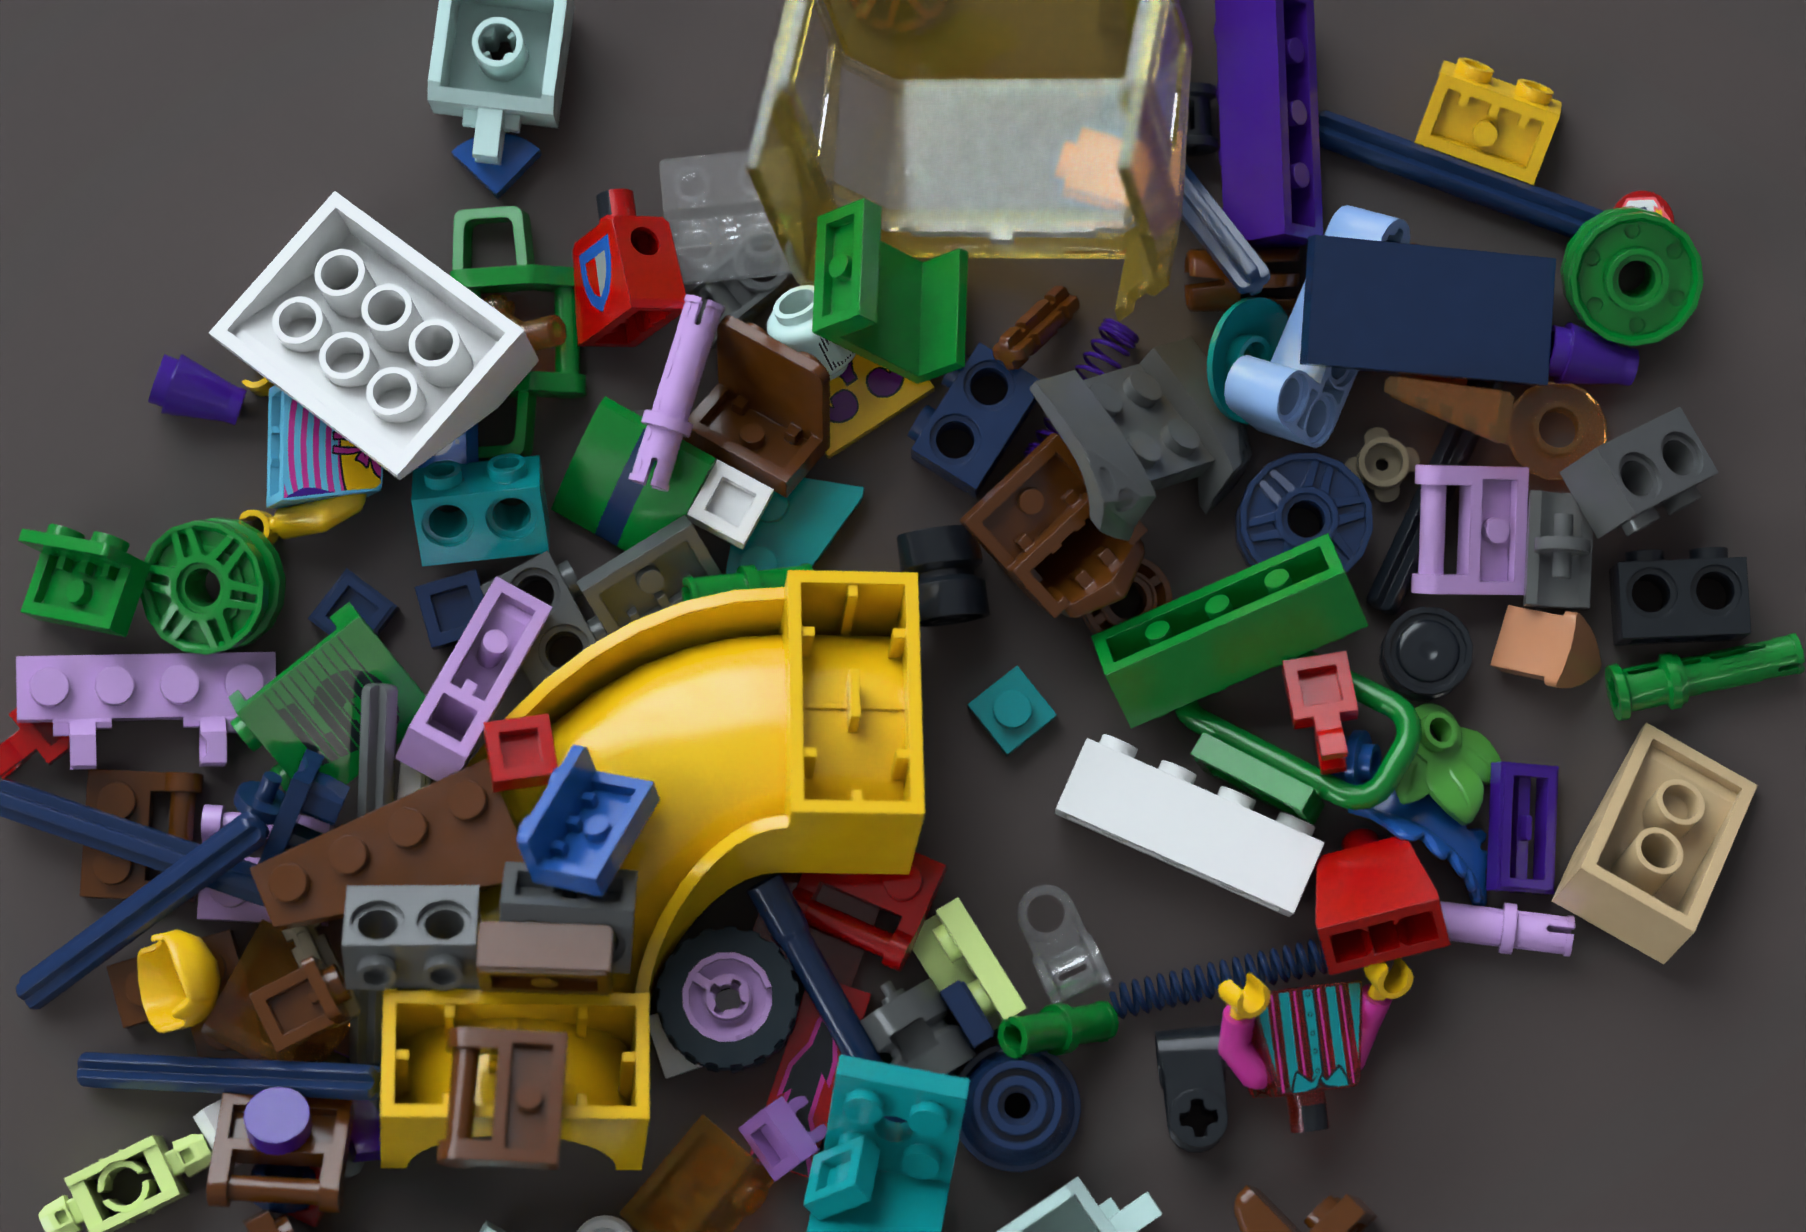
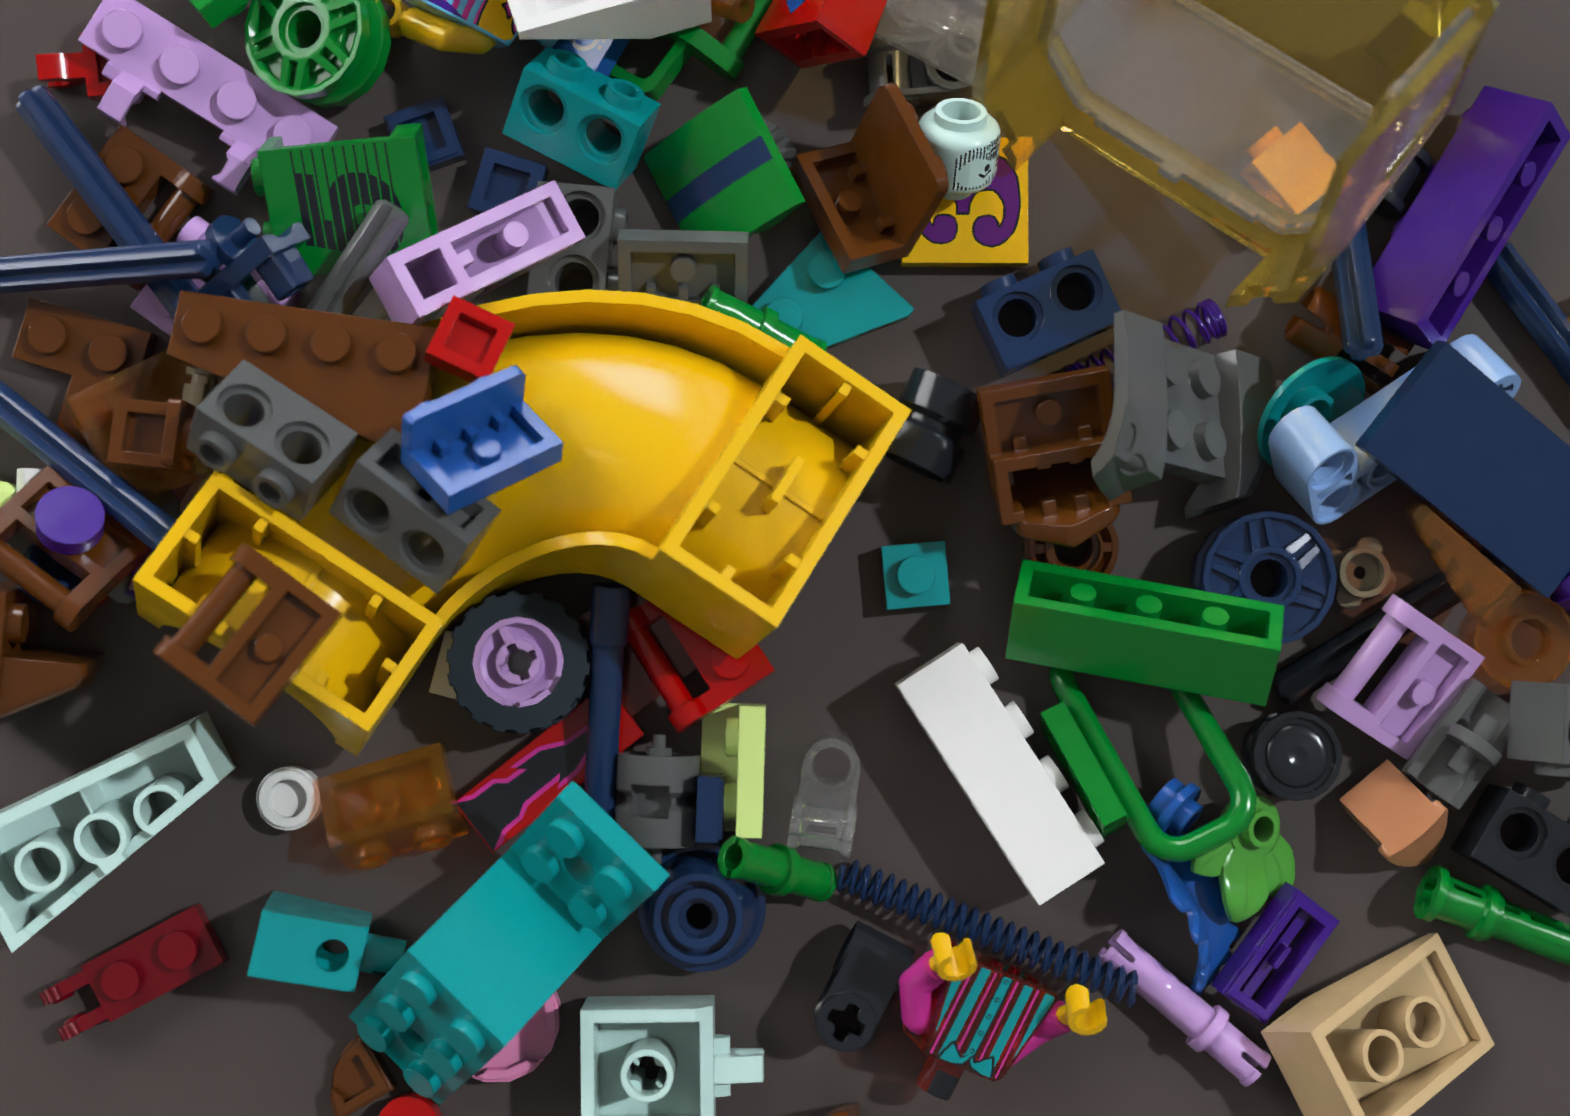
camera: 30 degrees right, 5 degrees up
(177, 980) = (70, 347): yellow hair -> none
(545, 958) = (369, 533): slope -> none
(676, 393) = (807, 121): lavender pin -> none
(730, 504) = (792, 248): white plate -> none
(780, 1137) = (486, 807): medium lavender tile -> none
(842, 1177) = (509, 882): teal plate -> none
(886, 301) = (1035, 160): green panel -> none
(1035, 327) = (1147, 267): reddish brown axle -> none
(1322, 697) = (1186, 741): plate -> none
(1375, 903) = (1116, 944): red torso -> none

